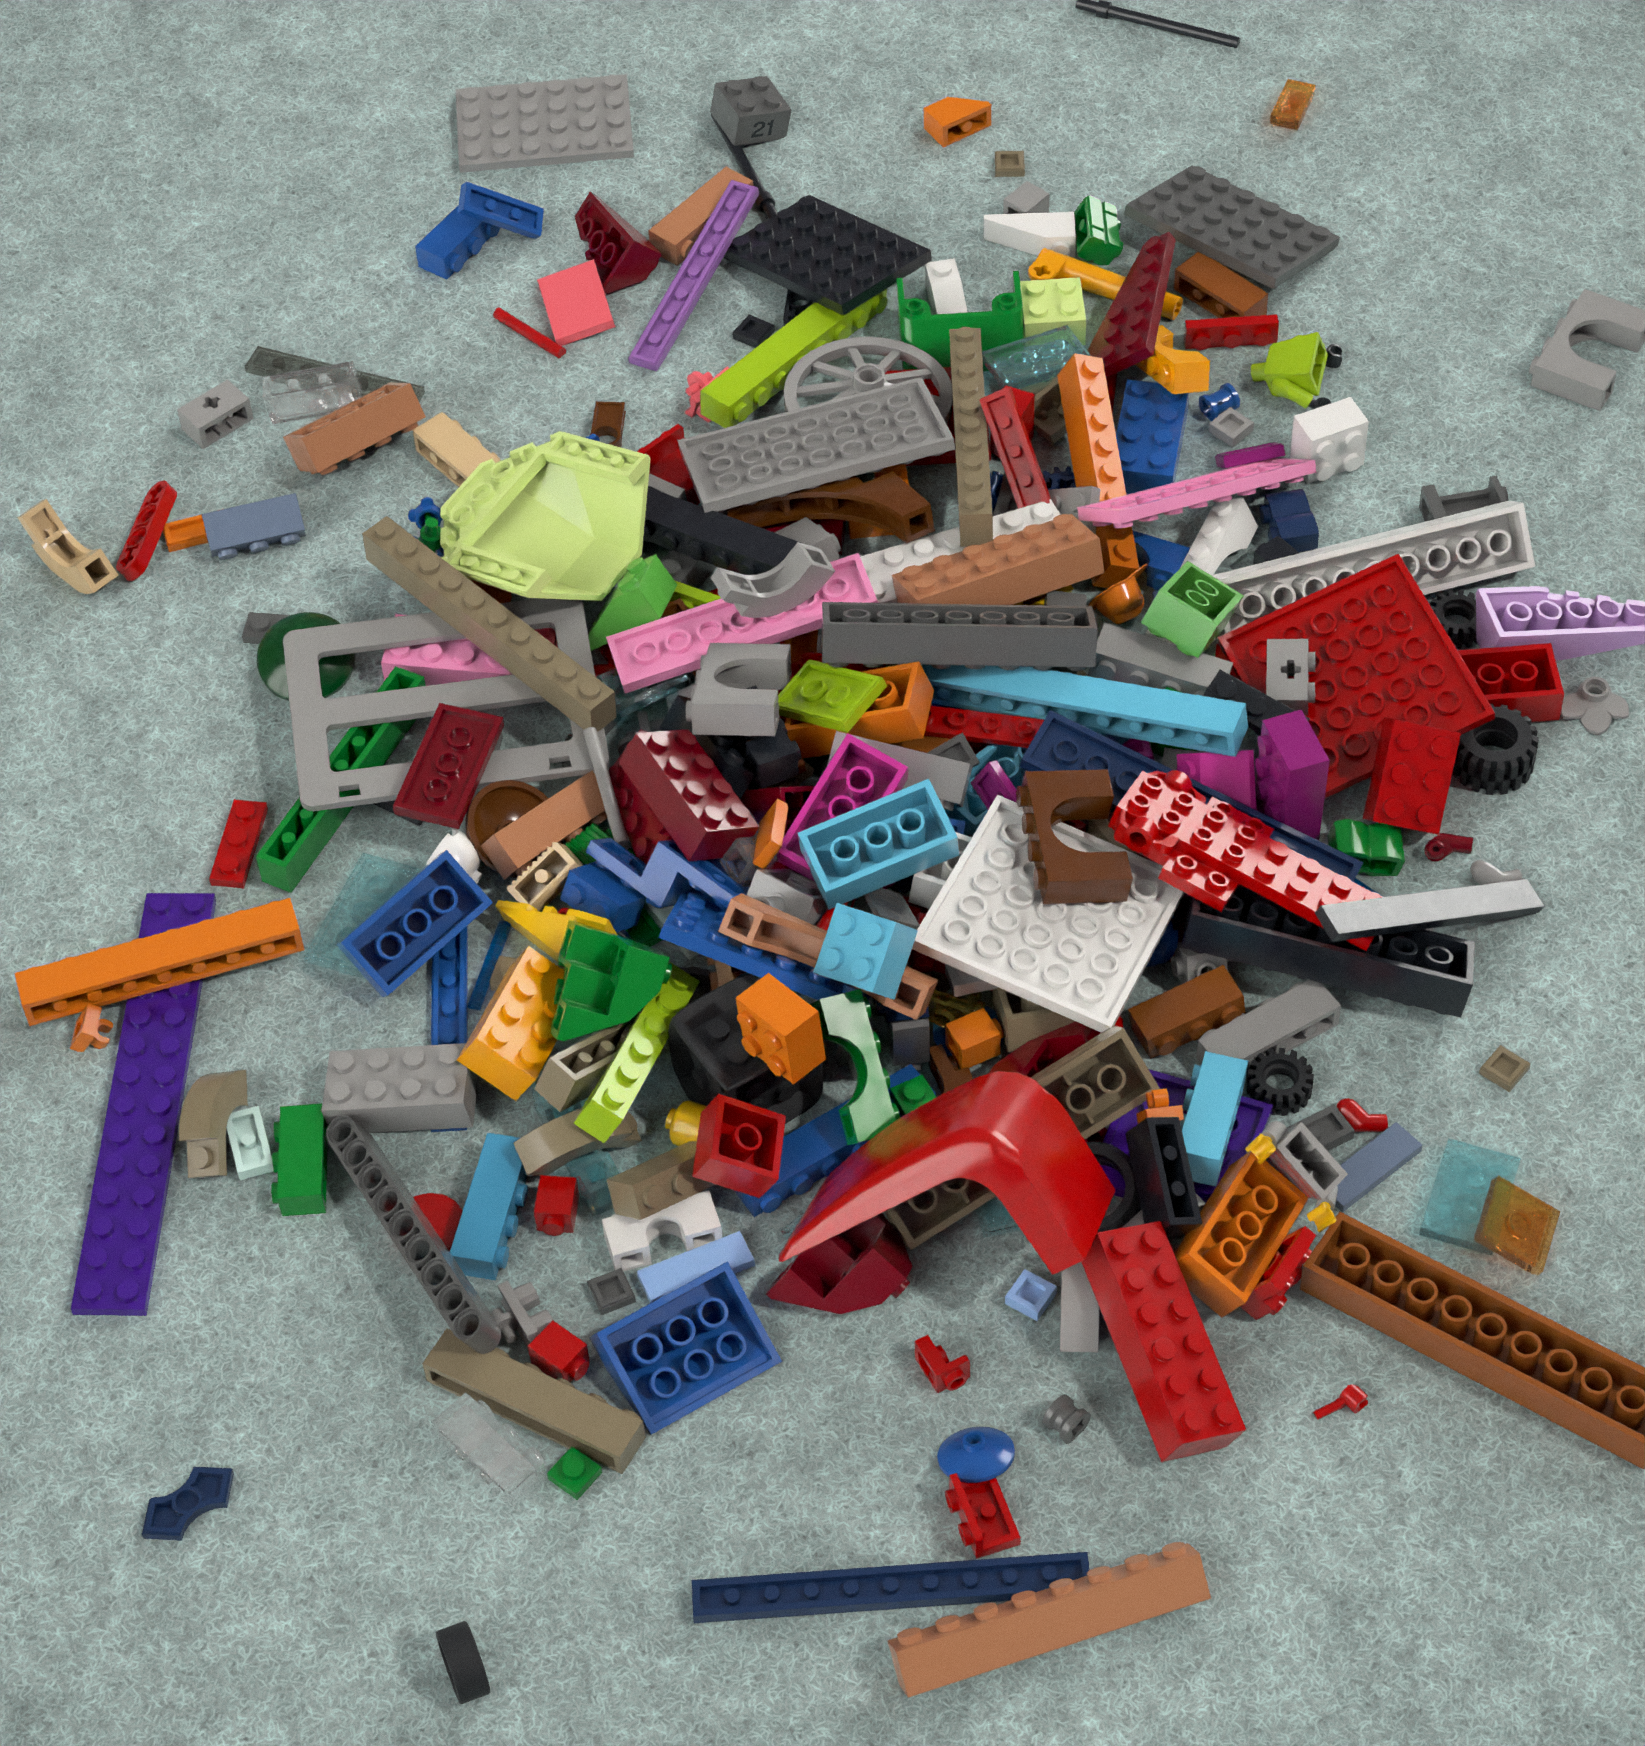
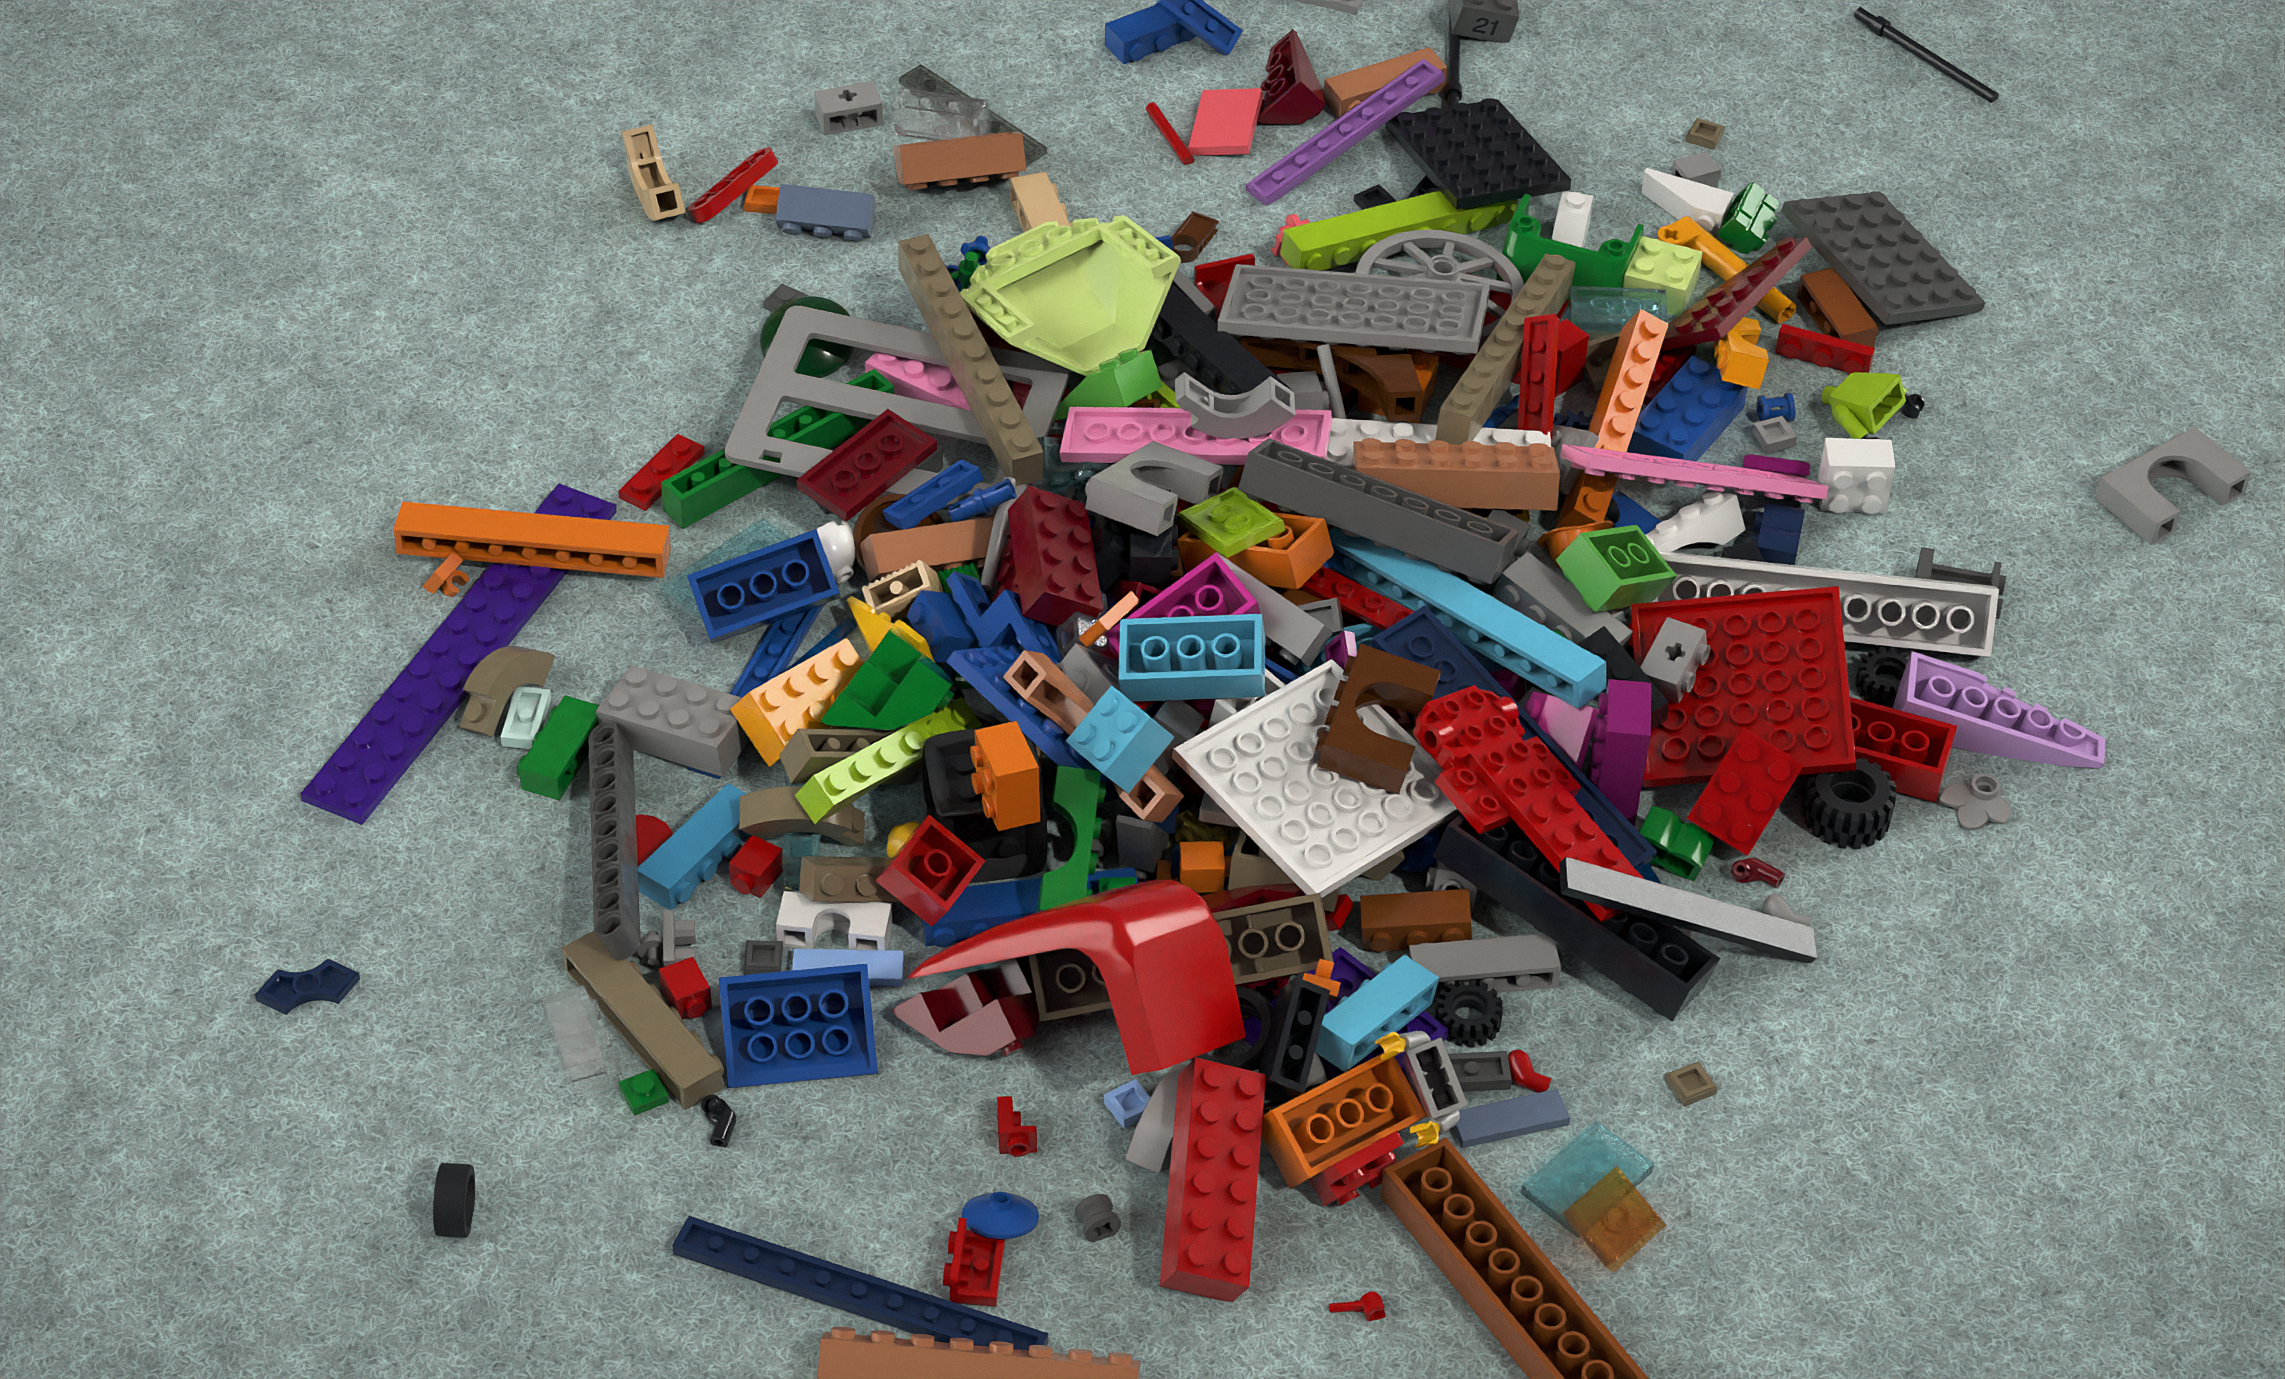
camera: 20 degrees right, 5 degrees down
(527, 772) = (933, 495): none -> blue plate
(576, 761) = (982, 501): none -> blue pin
(664, 1468) = (721, 1117): none -> black arm
(829, 522) = (1331, 381): none -> light grey bar
(956, 119) = (1676, 77): orange slope -> none
(1292, 104) = (2012, 169): clear orange plate -> none

